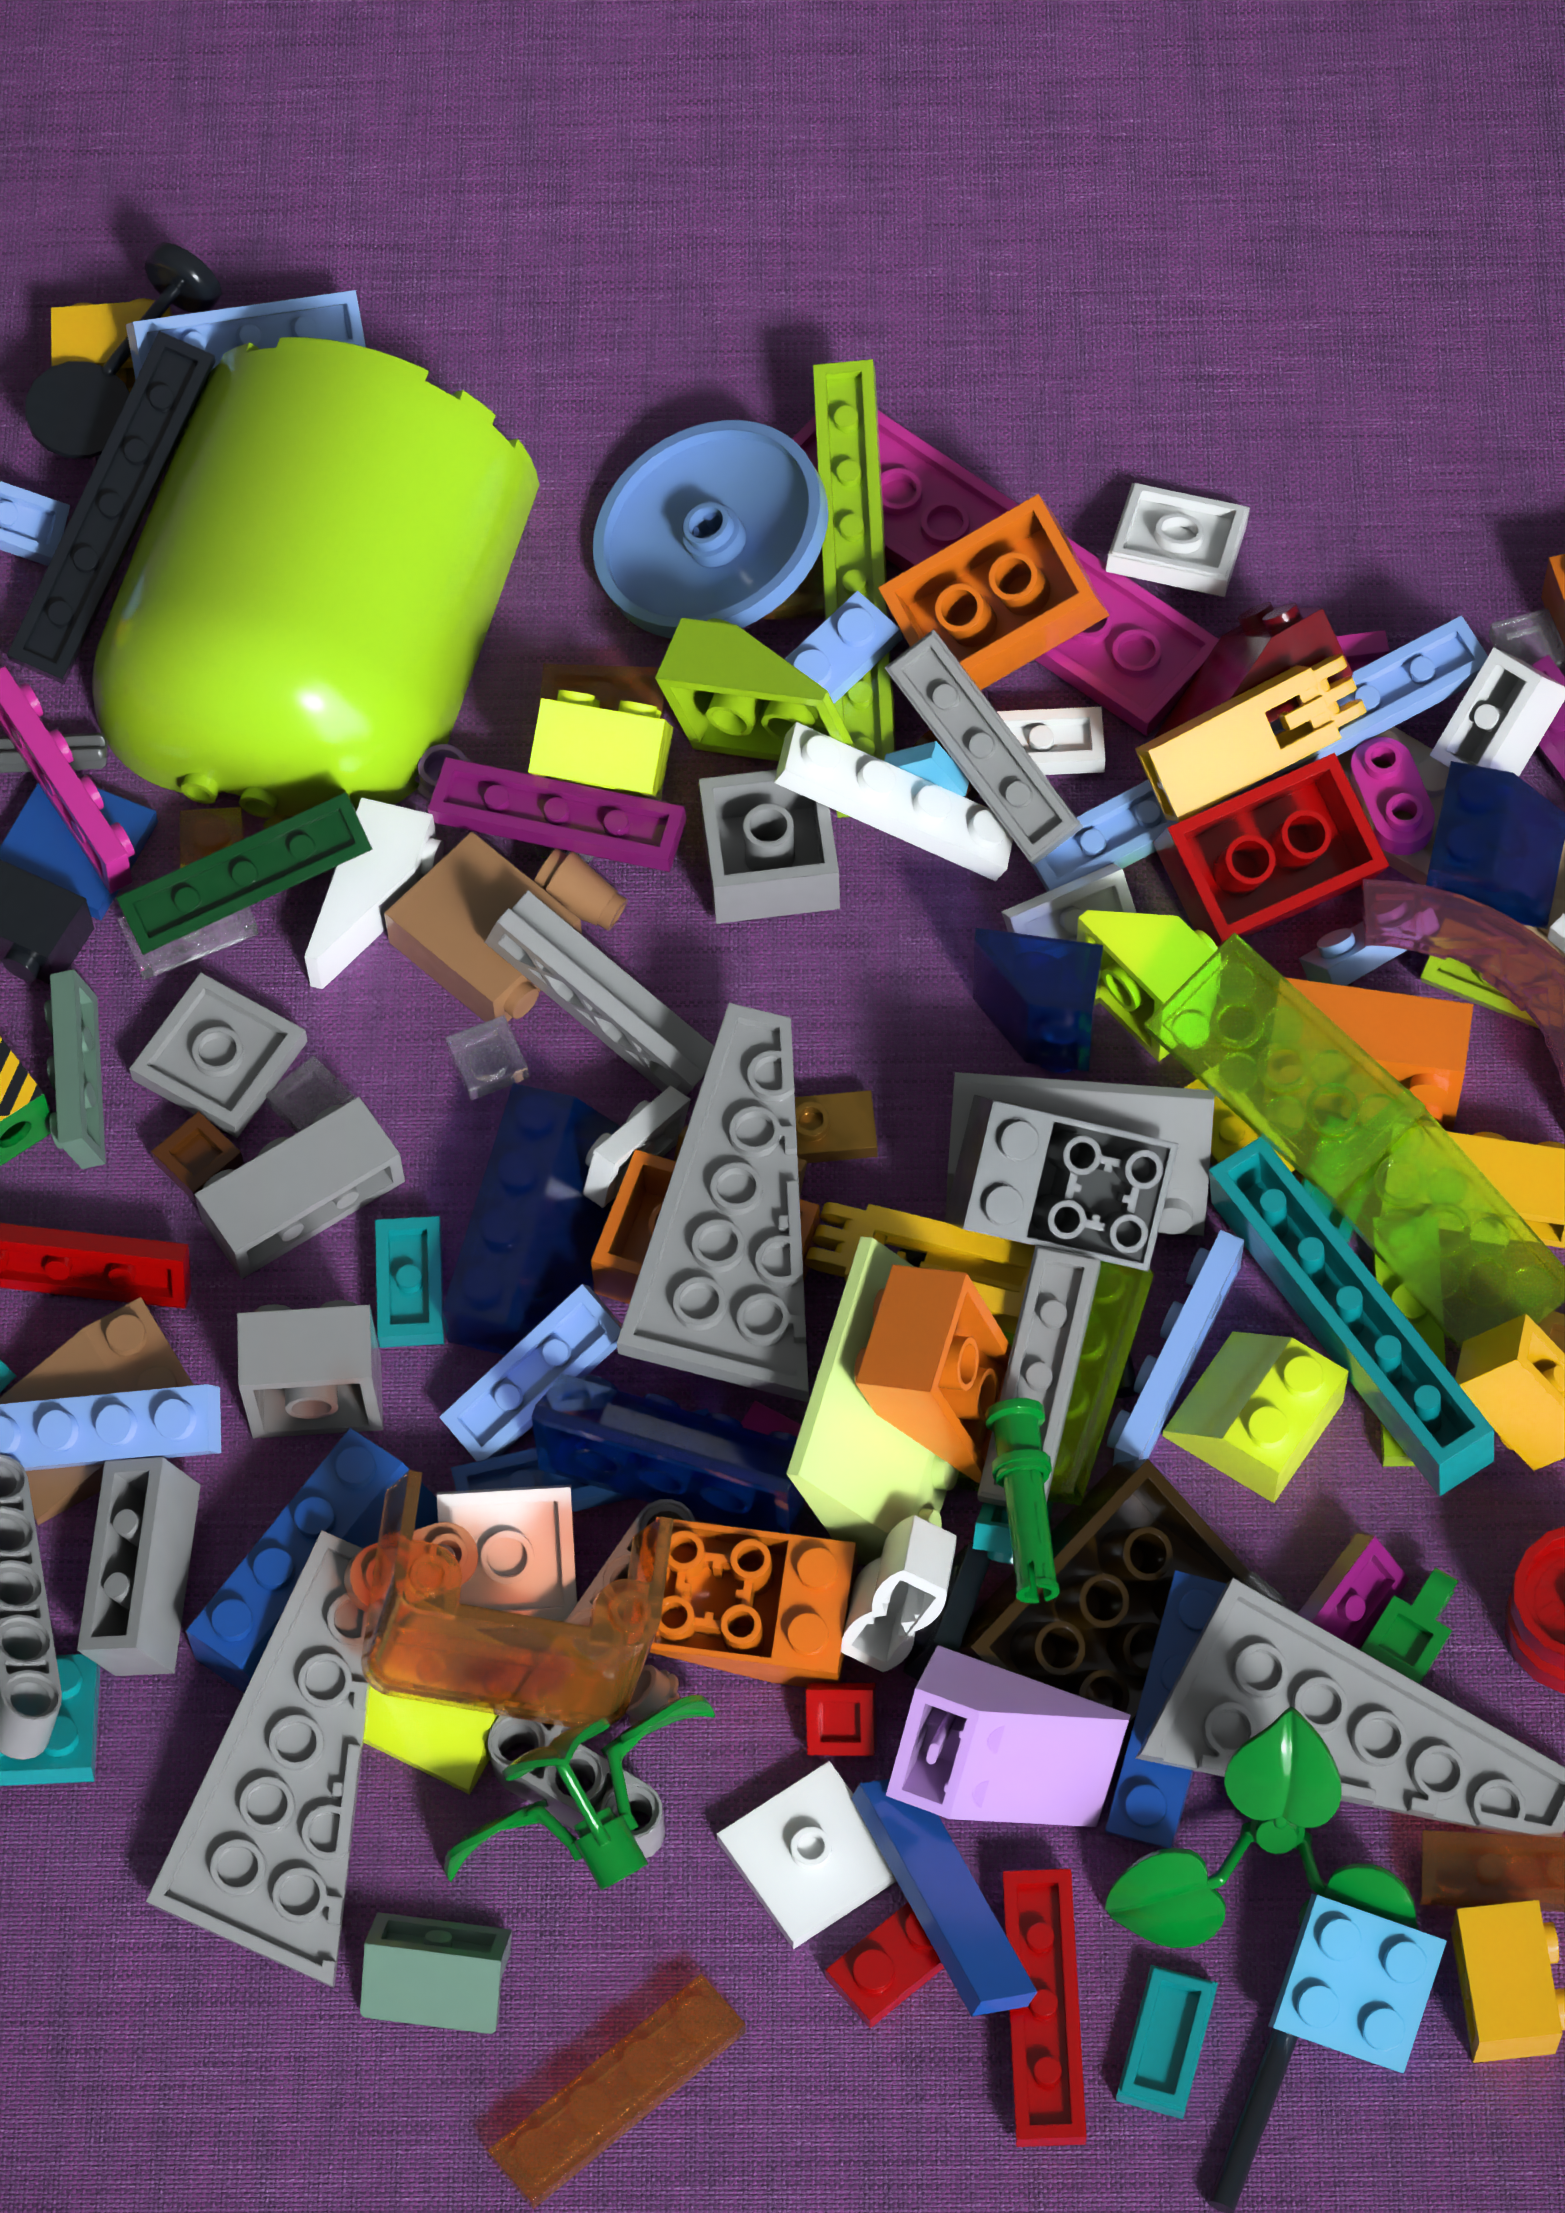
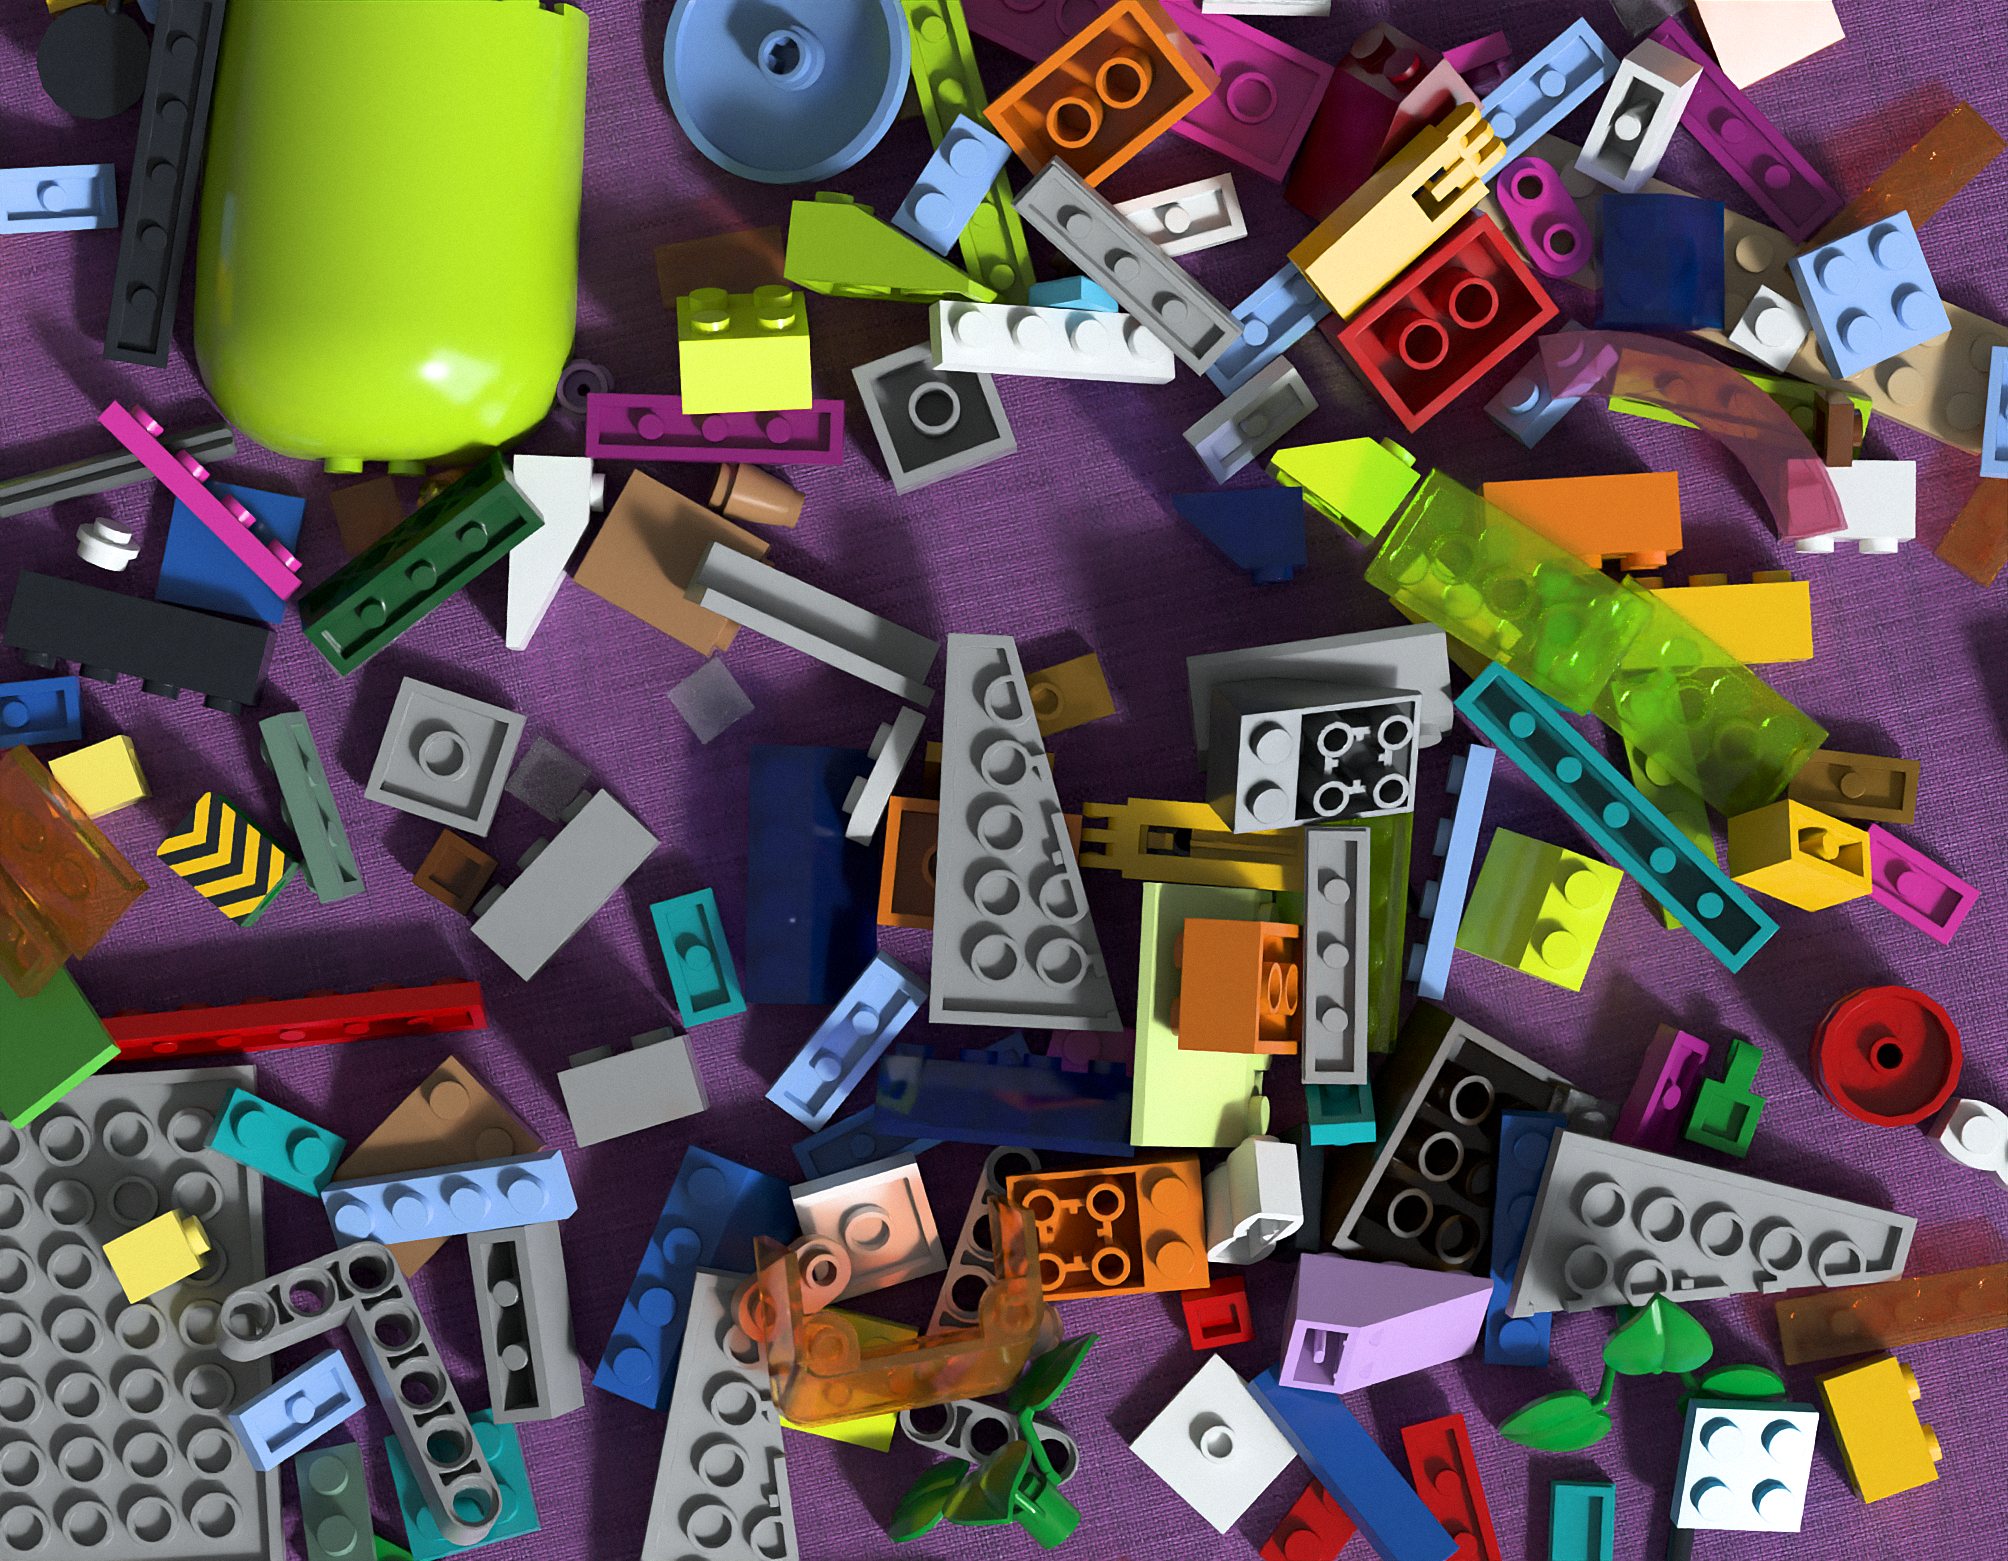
camera: 15 degrees left, 25 degrees up
(1022, 1471) = (1343, 1068): green pin -> none

